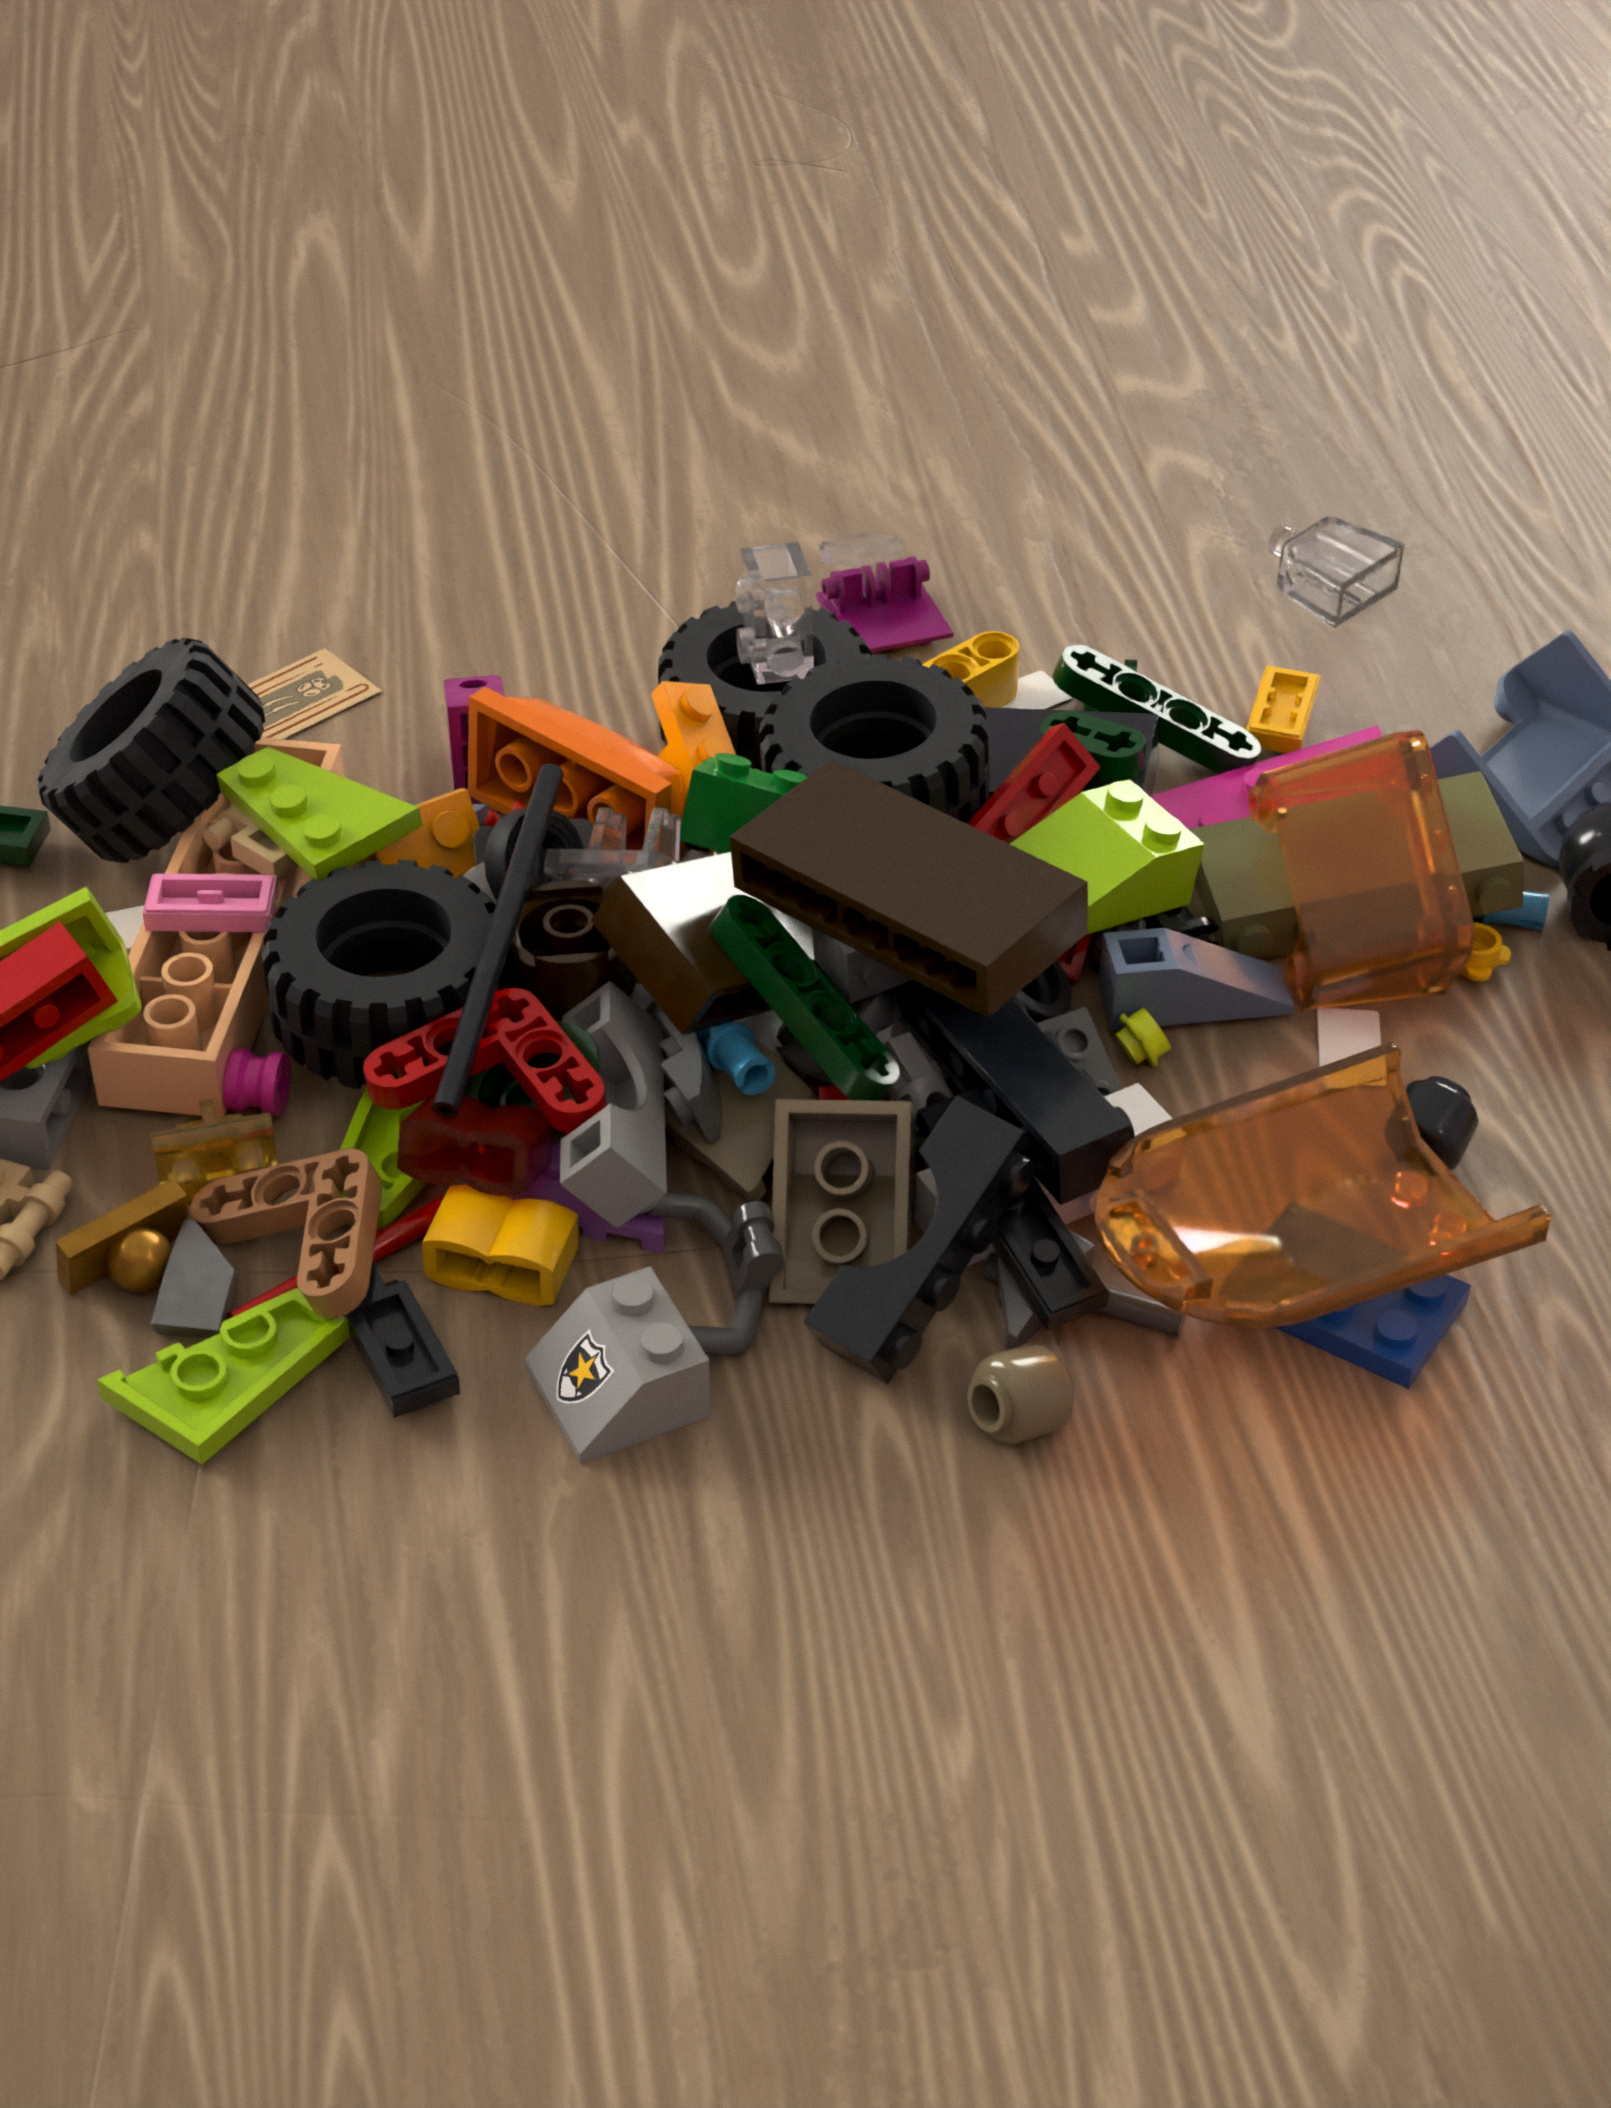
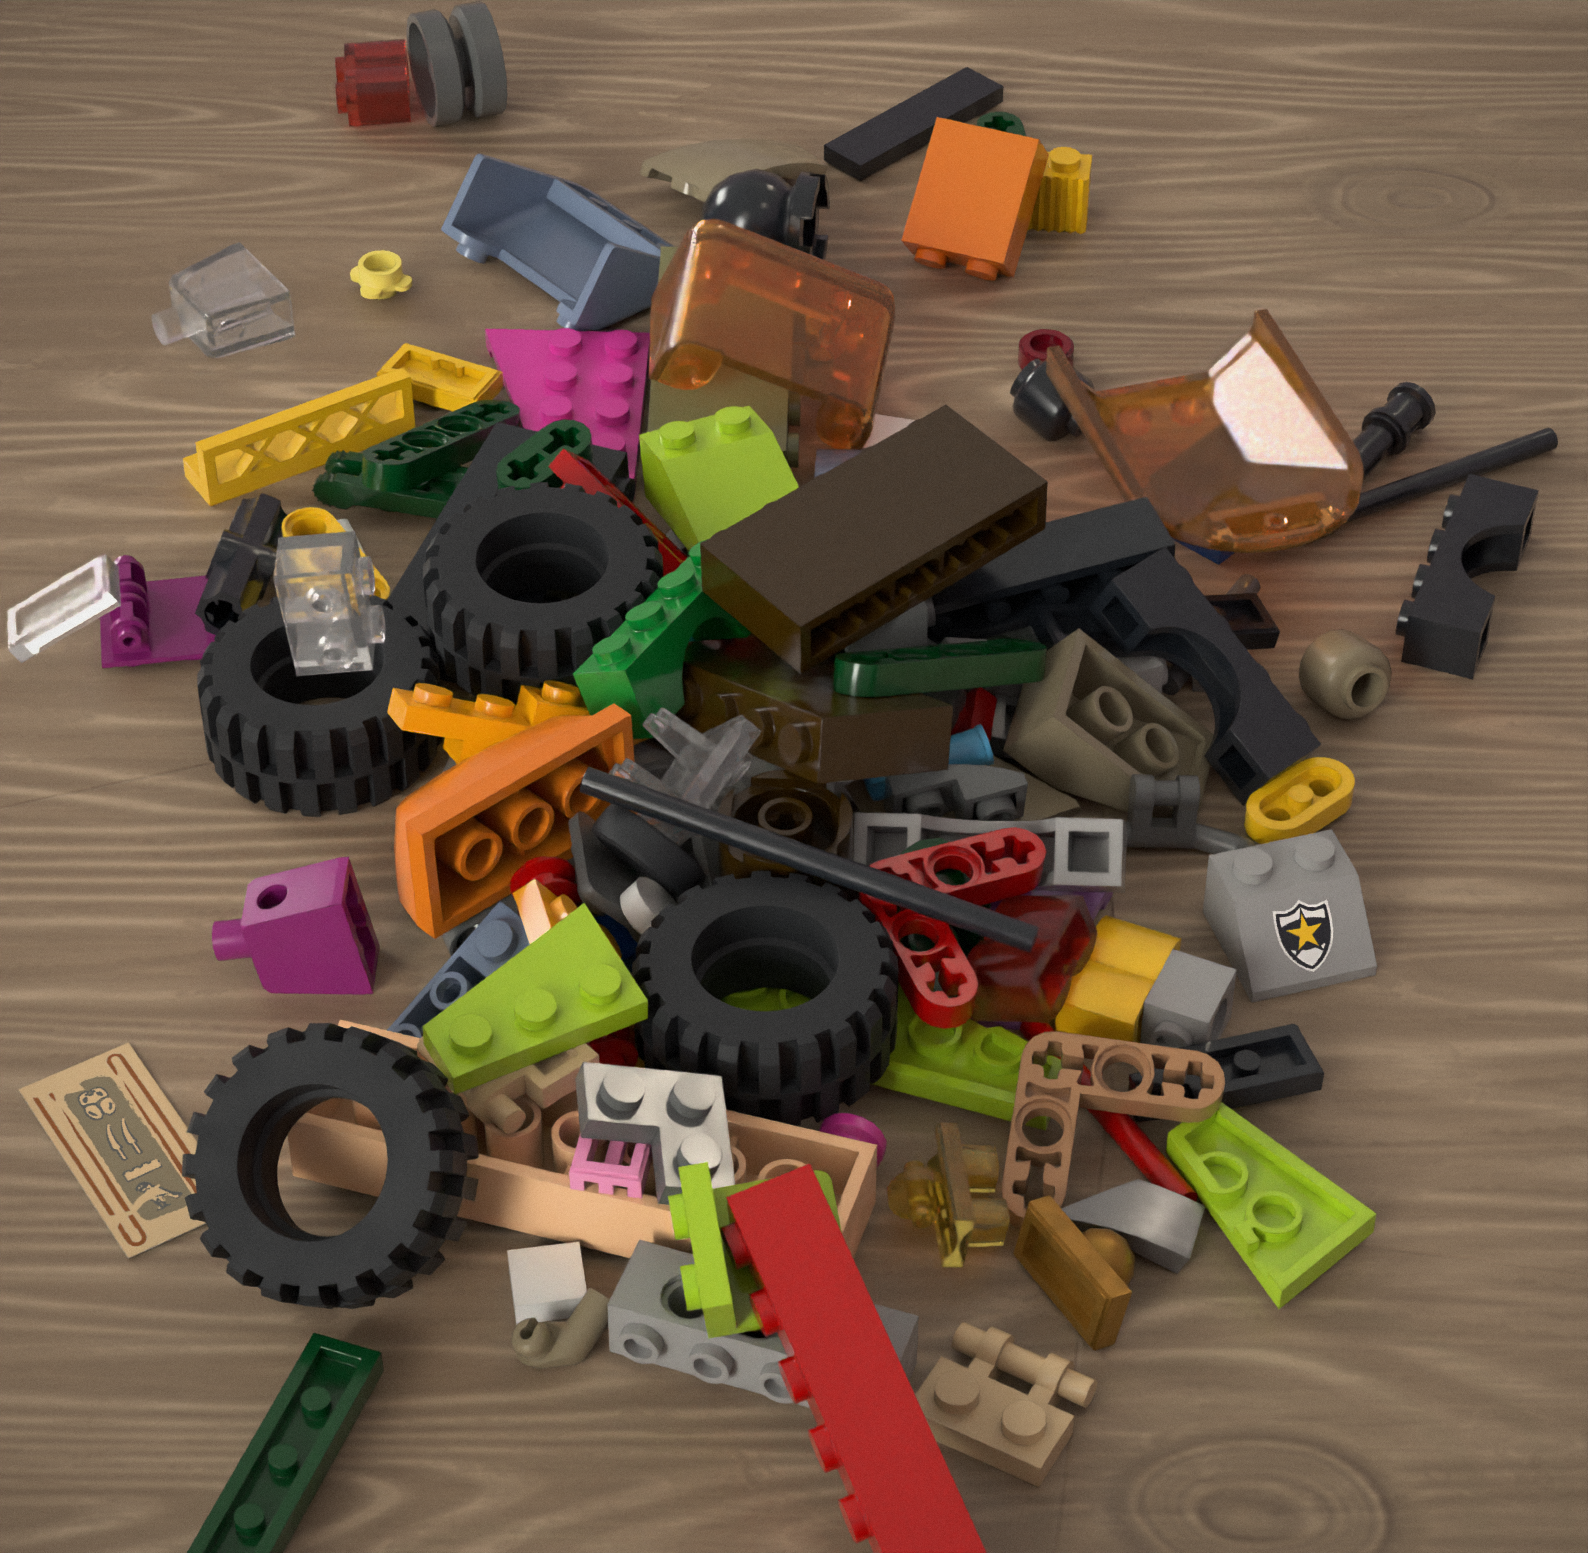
camera: 80 degrees left, 0 degrees up
(203, 925) = (671, 1110): none -> plate
(472, 1295) = (1188, 1002): none -> light grey brick
(817, 1376) = (1300, 800): none -> yellow plate
(943, 626) = (242, 562): none -> black piece
(1157, 642) = (301, 437): none -> yellow fence
(1316, 1374) = (1454, 472): none -> black bar
(1326, 1508) = (1450, 613): none -> black arch
(1437, 652) = (380, 275): none -> light yellow plate
(1497, 1419) = (1389, 428): none -> black pin
(1539, 1129) = (1035, 346): none -> dark red tile

